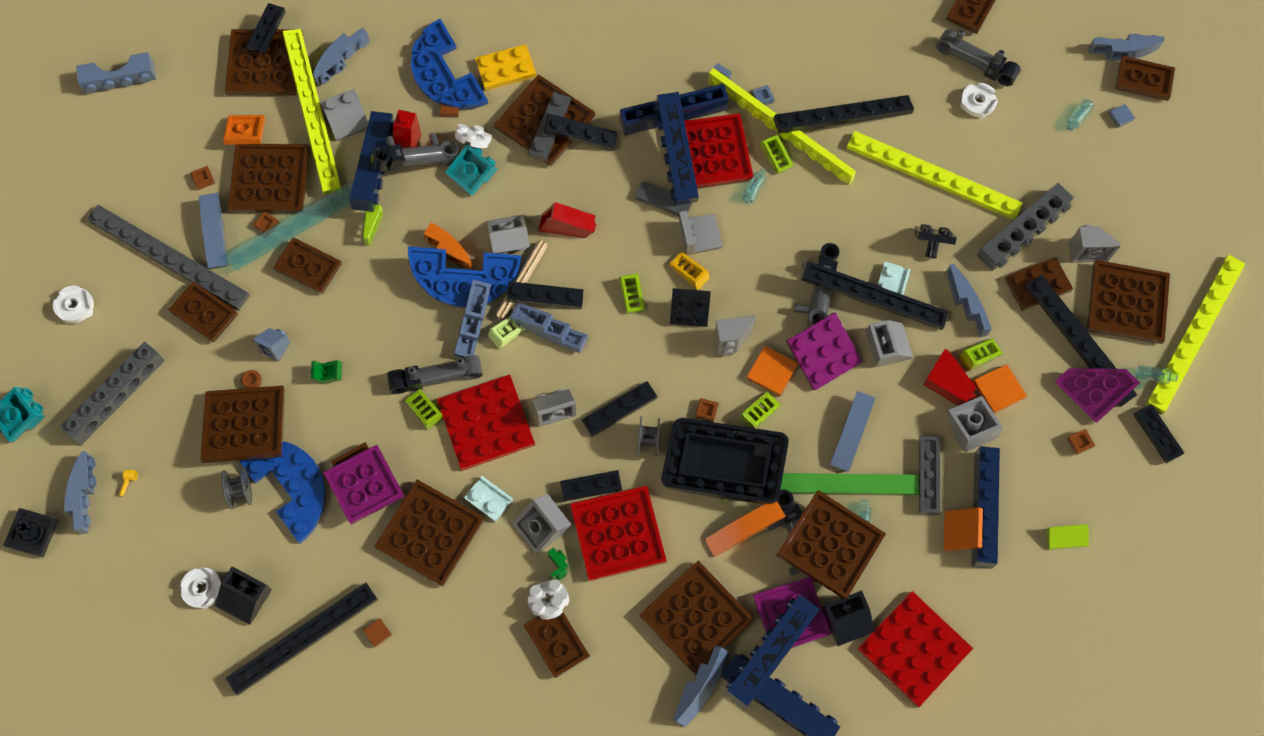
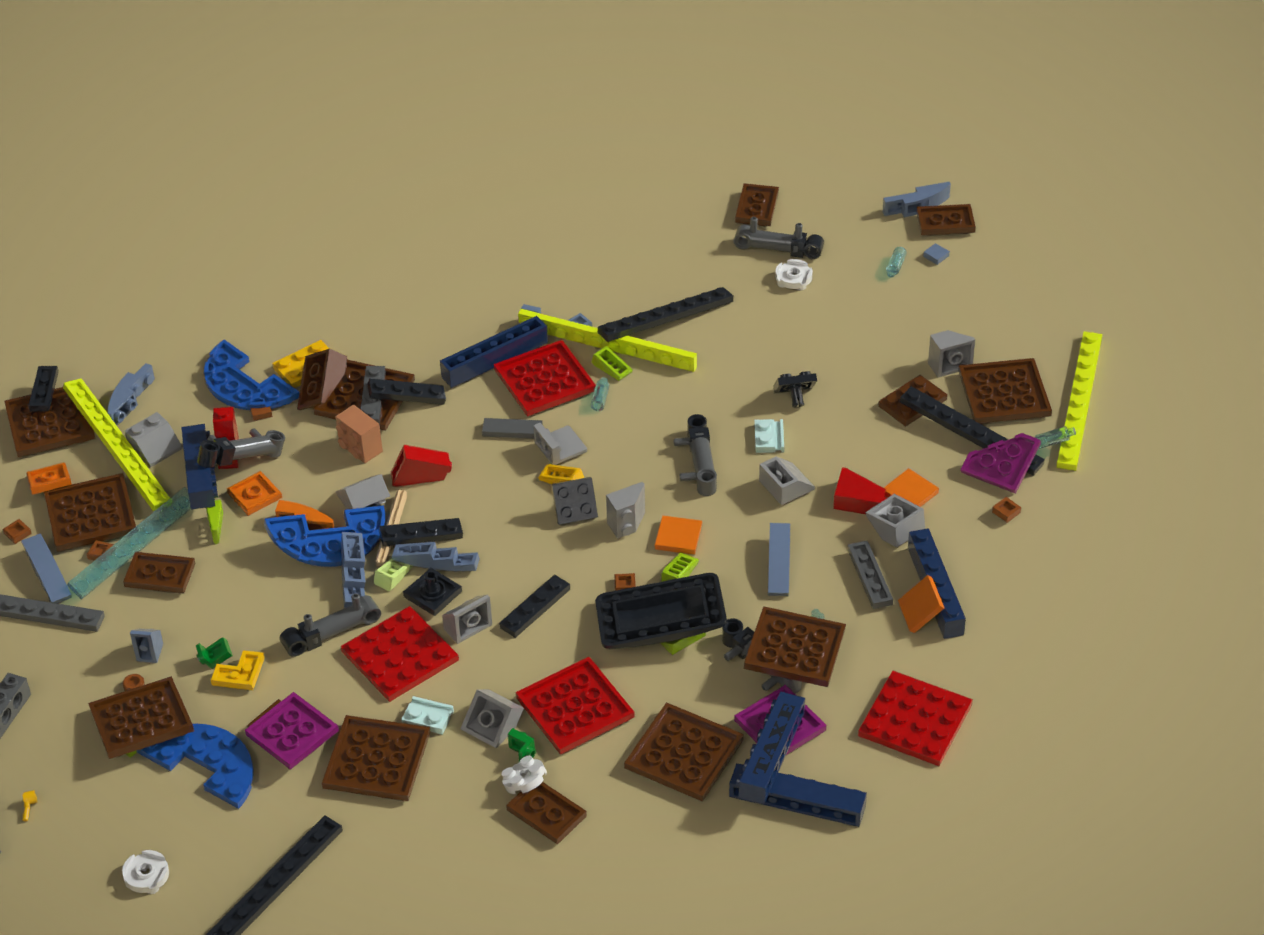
camera: 15 degrees left, 25 degrees down
(203, 312) = (60, 639): reddish brown plate -> none
(236, 487) = (155, 769): dark grey piece -> none
(242, 595) = (194, 861): black slope -> none
(345, 403) = (240, 676): none -> yellow plate
(377, 632) = (352, 858): dark orange tile -> none
(416, 200) = (254, 493): none -> orange tile
(432, 420) = (338, 668): lime slope -> none
(471, 169) = (304, 450): teal plate -> none
(474, 135) = (296, 421): white plate -> none
(508, 95) = (320, 377): none -> reddish brown slope
(523, 169) = (359, 434): none -> nougat brick
(534, 365) = (432, 591): none -> black plate
(591, 485) = (530, 673): black plate -> none
(630, 278) = (503, 497): lime slope -> none
(648, 436) = (574, 612): dark grey piece -> none
(677, 148) = (510, 376): dark blue brick -> none
(697, 693) = (712, 805): sand blue slope -> none
(744, 527) = (702, 662): orange slope -> none
(824, 351) = (723, 502): magenta plate -> none
(849, 618) = (838, 705): black slope -> none
(851, 484) = (799, 602): bright green tile -> none
(874, 295) = (755, 444): black plate -> none
(934, 175) = (775, 343): neon yellow plate -> none
(965, 294) = (848, 426): sand blue slope -> none
(970, 360) = (878, 470): lime slope -> none
(1055, 196) = (880, 358): dark grey brick -> none
(1067, 536) = (1026, 586): lime slope -> none
(1158, 433) = (1078, 483): black plate -> none

